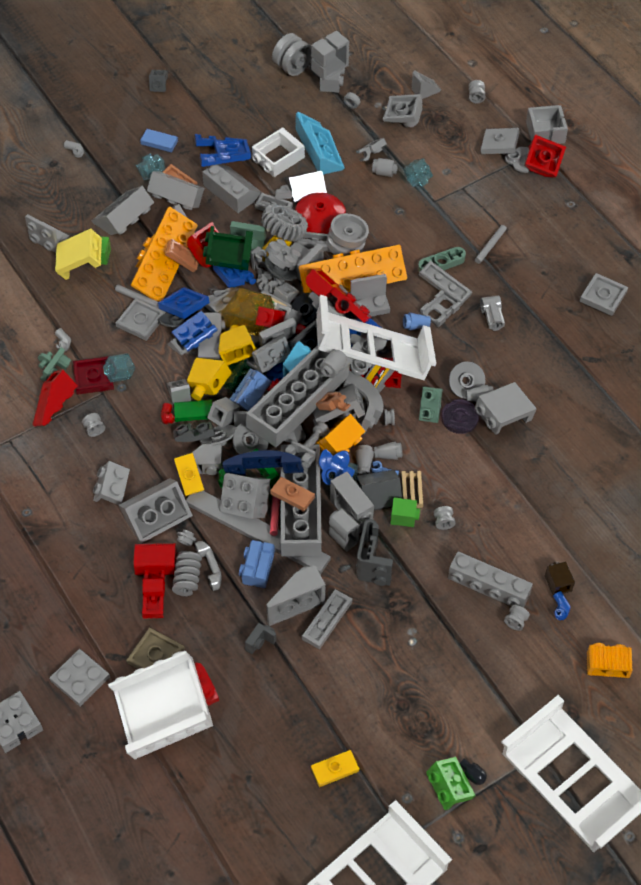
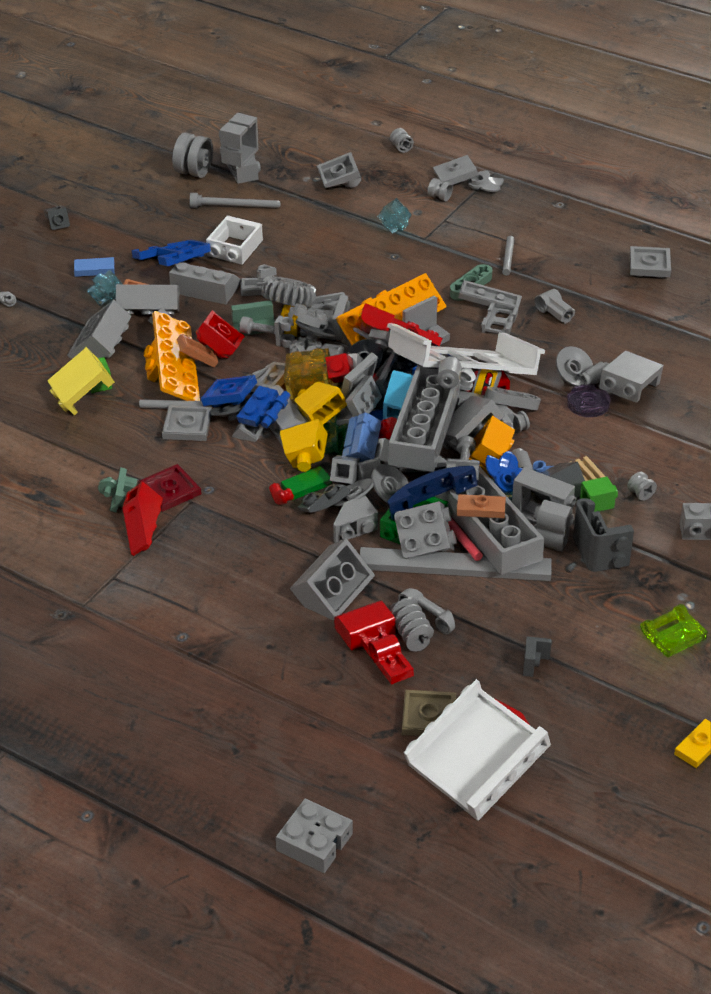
camera: 25 degrees left, 15 degrees down
(44, 234) = (25, 375): light grey bracket -> none
(65, 340) = (111, 464): light grey arm -> none
(79, 677) = (359, 766): light grey plate -> none
(93, 424) = (205, 528): light grey wheel -> none
(111, 483) = (263, 574): light grey bracket -> none
(119, 367) = (199, 467): clear light blue brick -> none
(179, 391) = (280, 468): light grey slope -> none
(186, 537) = (385, 593): light grey plate -> none
(189, 474) = (345, 526): yellow plate -> none
(228, 249) = (250, 328): dark green panel -> none
(234, 277) = (264, 351): blue plate -> none
(257, 564) = (481, 590): medium blue brick -> none
(274, 100) = (197, 200): none -> light grey piece
(300, 593) = (553, 595): light grey slope -> none
(306, 184) = (286, 259): slope -> none
(318, 144) = (274, 225): medium azure slope -> none
(320, 218) = (320, 273): red dish -> none
(327, 619) = (590, 613): light grey plate -> none
(332, 401) = (464, 411): nougat plate -> none
(347, 234) = (362, 281): light grey wheel -> none
(352, 100) = (279, 179): light grey tile -> none
(374, 146) = (330, 211): light grey plate -> none
(382, 667) = (677, 637): none -> clear neon green plate
(384, 167) = (355, 222): light grey brick -> none
(384, 391) = (512, 398): none -> light grey beam
(389, 451) = (543, 449): light grey cone -> none
(415, 321) = (483, 336): medium blue cone -> none
(424, 85) = (342, 146): light grey slope -> none
(430, 404) = (555, 395): sand green hips -> none
(476, 156) = (439, 189): none -> light grey wheel
(544, 157) = (510, 170): red slope -> none
(547, 123) = (492, 146): light grey piece -> none

